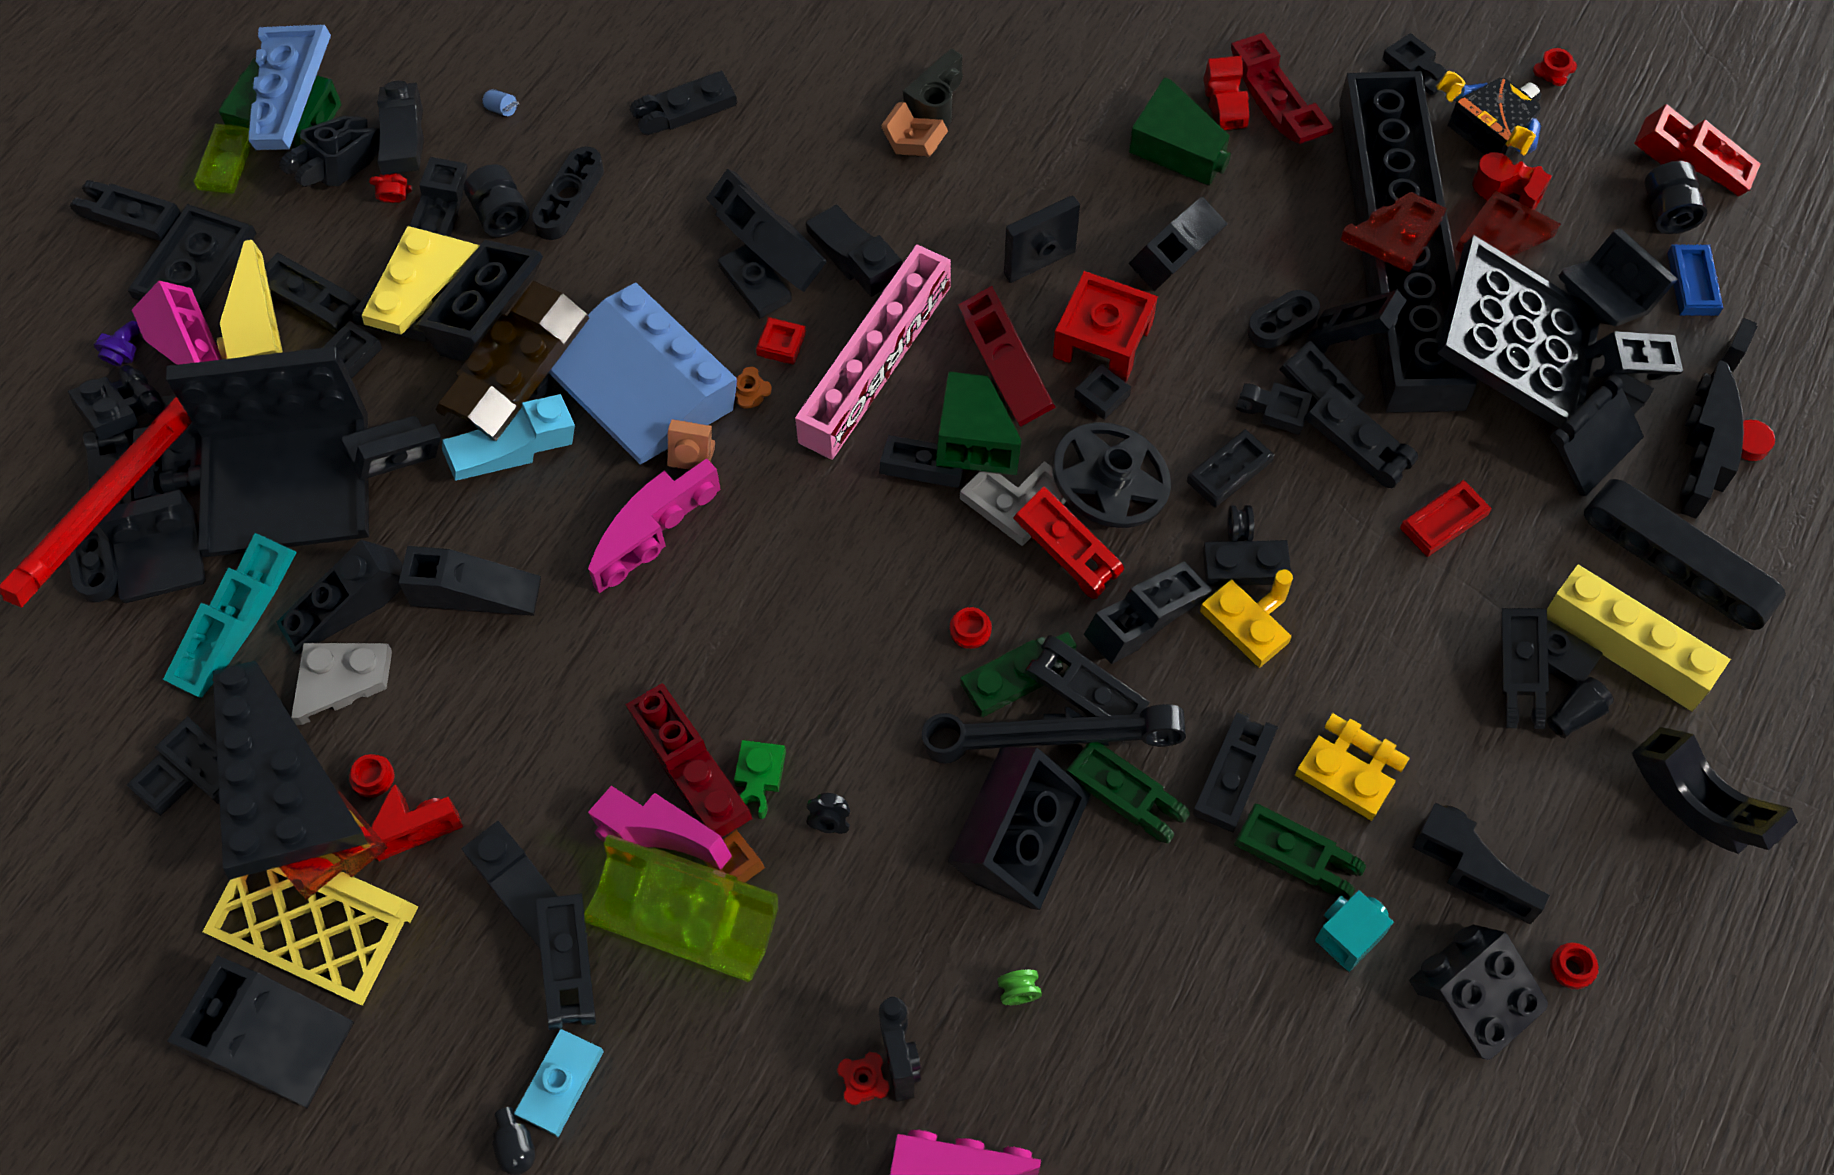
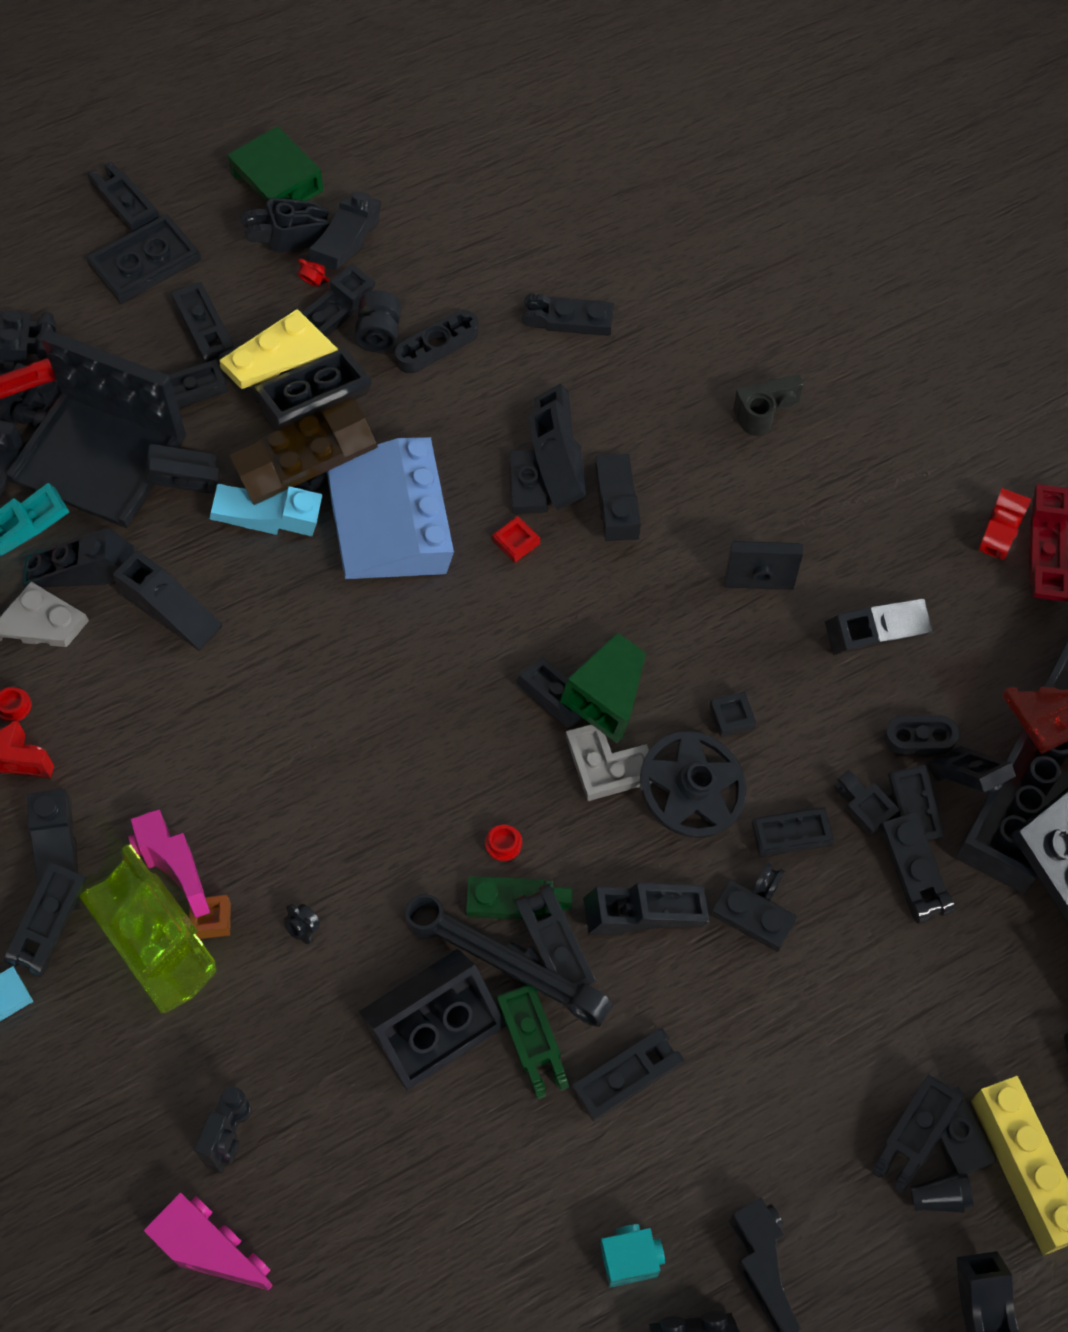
camera: 30 degrees right, 0 degrees up
(117, 348) = (49, 296): dark purple plate -> none
(175, 325) = (95, 305): dark pink slope -> none
(223, 159) = (213, 192): clear neon green plate -> none
(249, 315) = (149, 319): light yellow slope -> none
(285, 78) = (287, 152): medium blue wing -> none
(500, 102) = (435, 246): medium blue piece -> none
(637, 529) = (308, 627): dark pink slope -> none
(688, 761) = (228, 824): dark red slope -> none
(689, 444) = (388, 585): nougat bracket -> none
(753, 396) = (466, 571): dark orange plate -> none
(759, 771) = (276, 860): green plate -> none
(858, 1091) = (181, 1140): red plate -> none
(873, 352) = (574, 585): bright pink brick -> none
(912, 134) = (724, 426): nougat bracket -> none
(1006, 356) = (672, 644): dark red slope -> none
(1019, 987) = (348, 1139): bright green bush -> none
(1068, 542) = (619, 818): red plate -> none
(1105, 321) = (769, 660): red panel -> none
(1180, 135) = (939, 538): dark green slope -> none
(1249, 622) = (722, 964): yellow plate -> none
(1298, 850) = (631, 1166): dark green hinge -> none
(1344, 775) = (713, 1133): yellow plate -> none
(1445, 518) = (944, 973): red tile -> none

